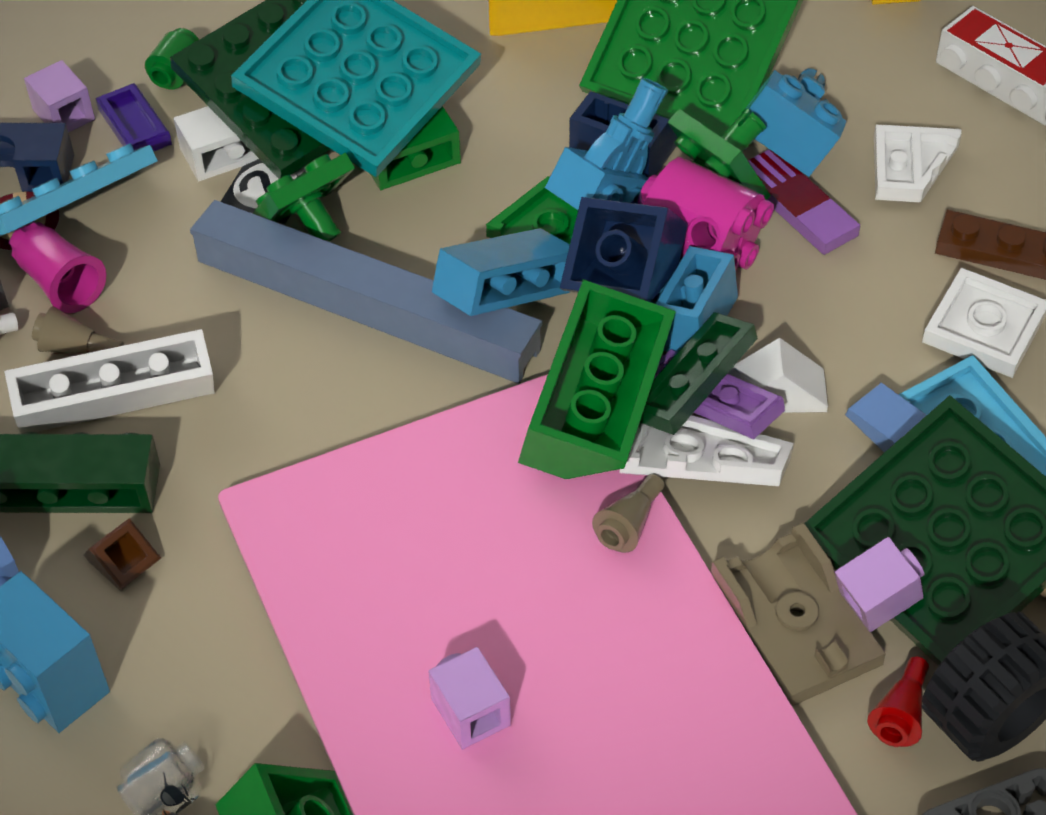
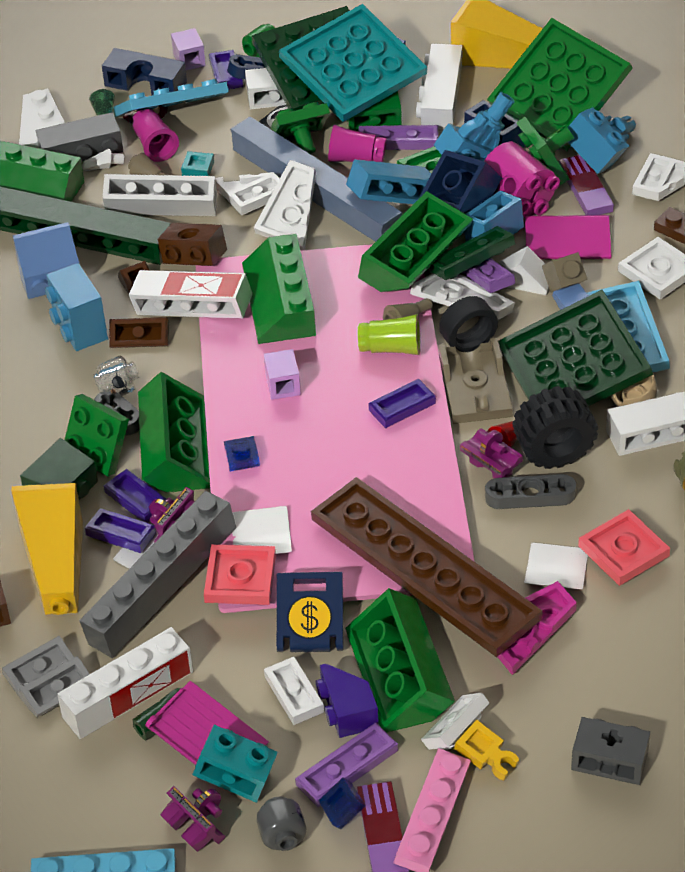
camera: 20 degrees right, 5 degrees down
(152, 305) = (197, 164): none -> teal plate
(160, 107) = (240, 63): none -> dark blue beam
(165, 667) = (138, 332): none -> reddish brown slope
(203, 466) = (192, 244): none -> reddish brown brick
(239, 569) = (191, 294): none -> white brick
(264, 334) = (249, 192): none -> white wing
(344, 353) = (289, 204): none -> white wing
(396, 525) = (280, 291): none -> green slope
(408, 214) = (351, 145): none -> dark pink plant
(464, 180) = (405, 136): none -> medium lavender tile
(501, 83) = (441, 85): none -> white brick
(629, 568) = (390, 336): none -> lime plant
(698, 697) = (402, 403): none -> dark purple tile
(747, 510) = (461, 312): none -> black tyre
(814, 297) = (564, 235): none -> dark pink piece
(853, 369) = (564, 272): none -> dark tan brick
(881, 583) = (520, 371): lavender brick -> none
(900, 762) = (490, 452): none -> magenta hips

